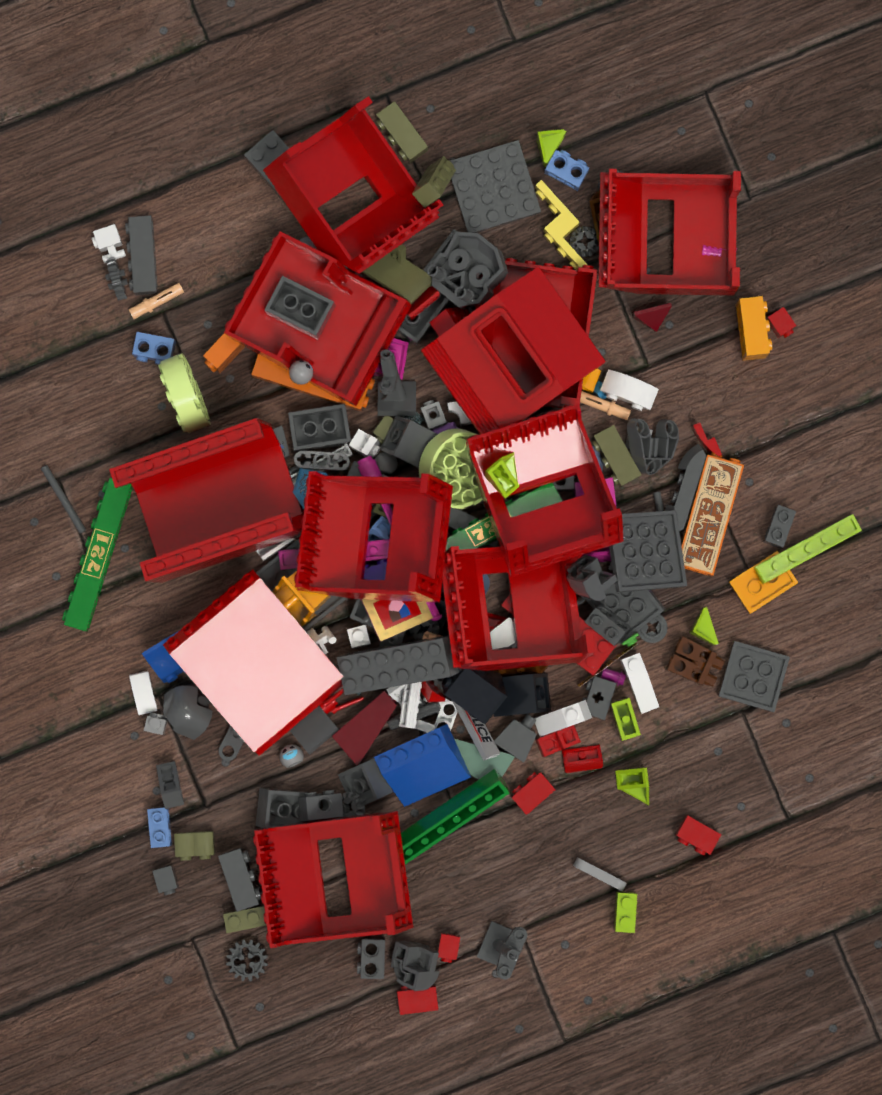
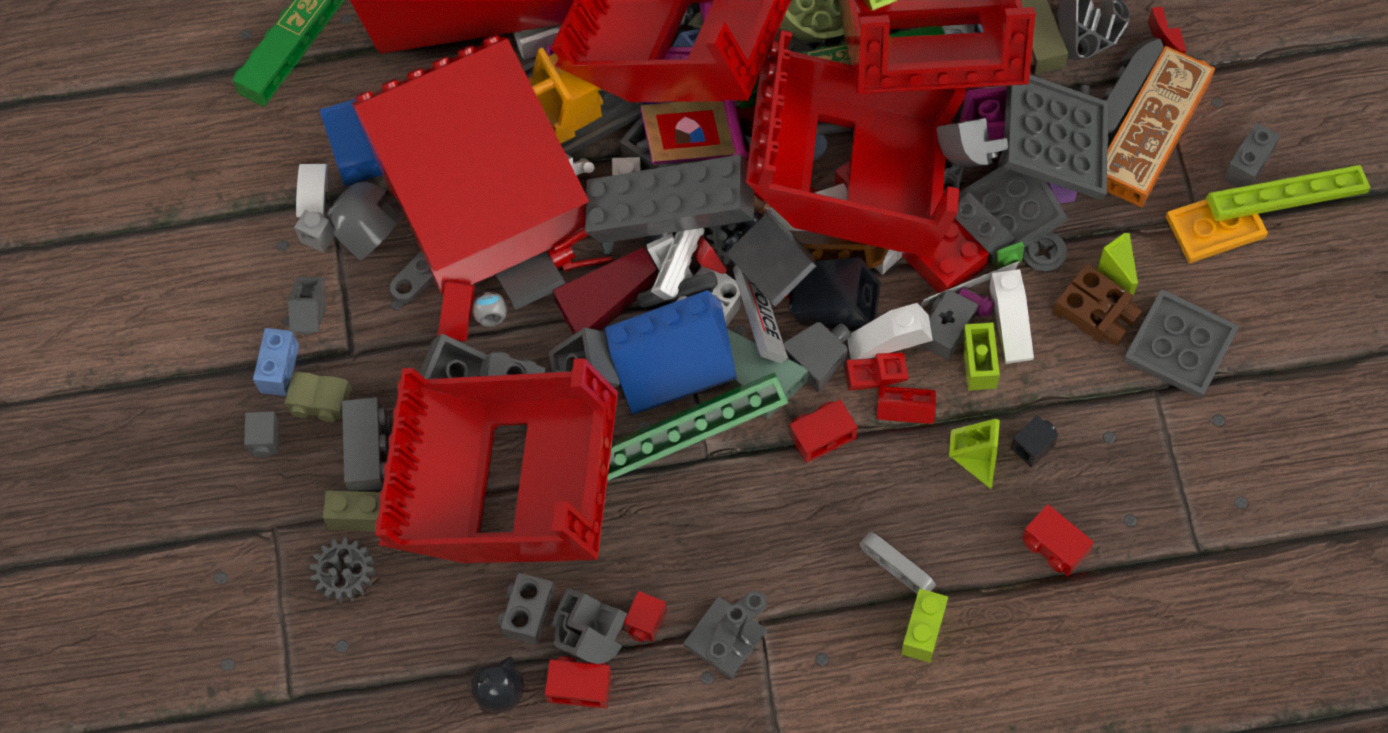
camera: 20 degrees right, 20 degrees down
(270, 764) = (456, 310): none -> red tile
(368, 1014) = (497, 686): none -> black piece
(671, 768) = (1035, 440): none -> black brick

